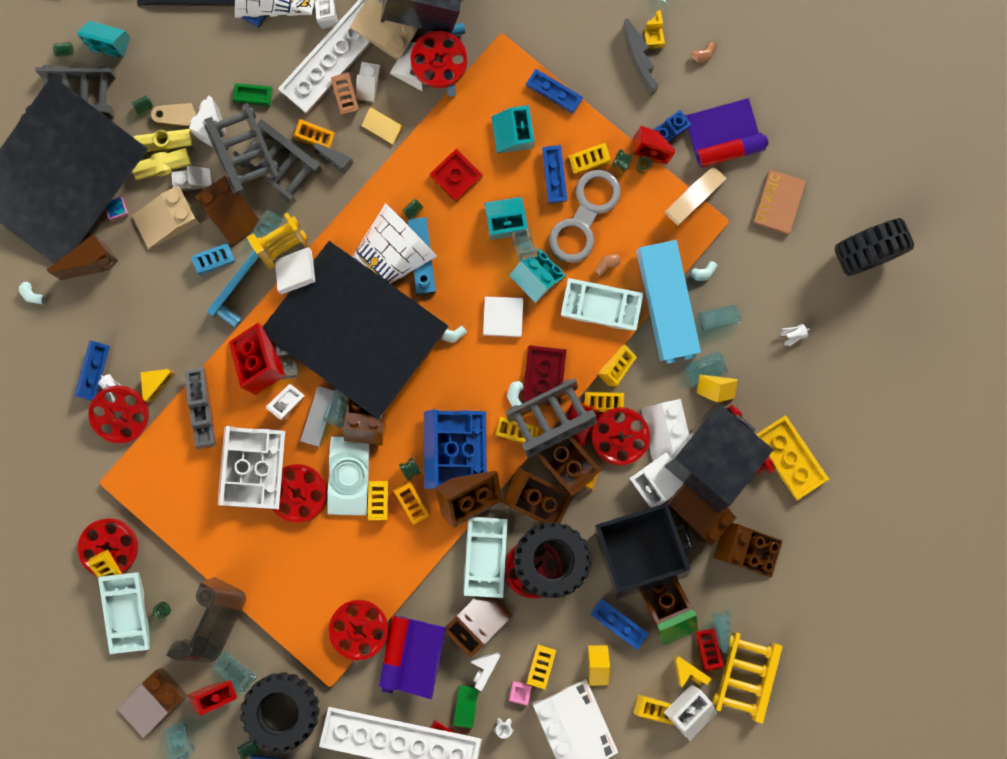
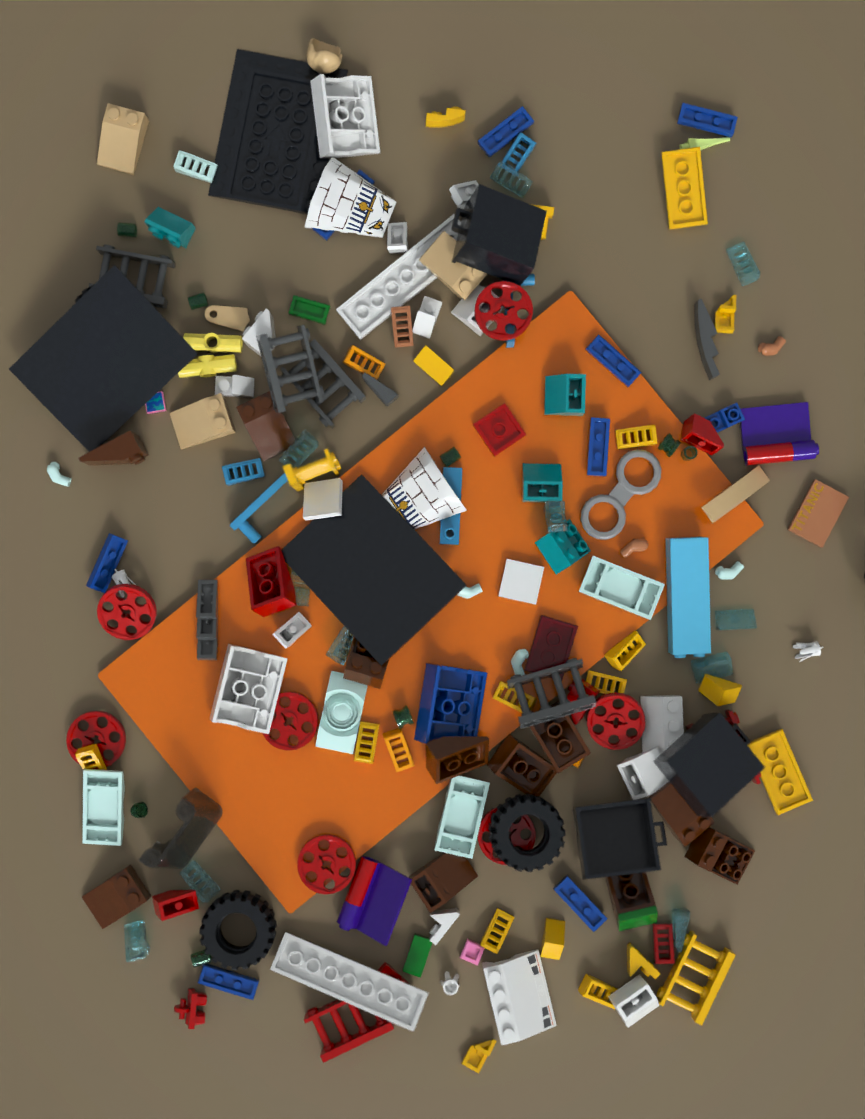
camera: 10 degrees right, 5 degrees up
(154, 382) = (165, 585): yellow slope -> none
(315, 426) = (317, 656): light grey tile -> none

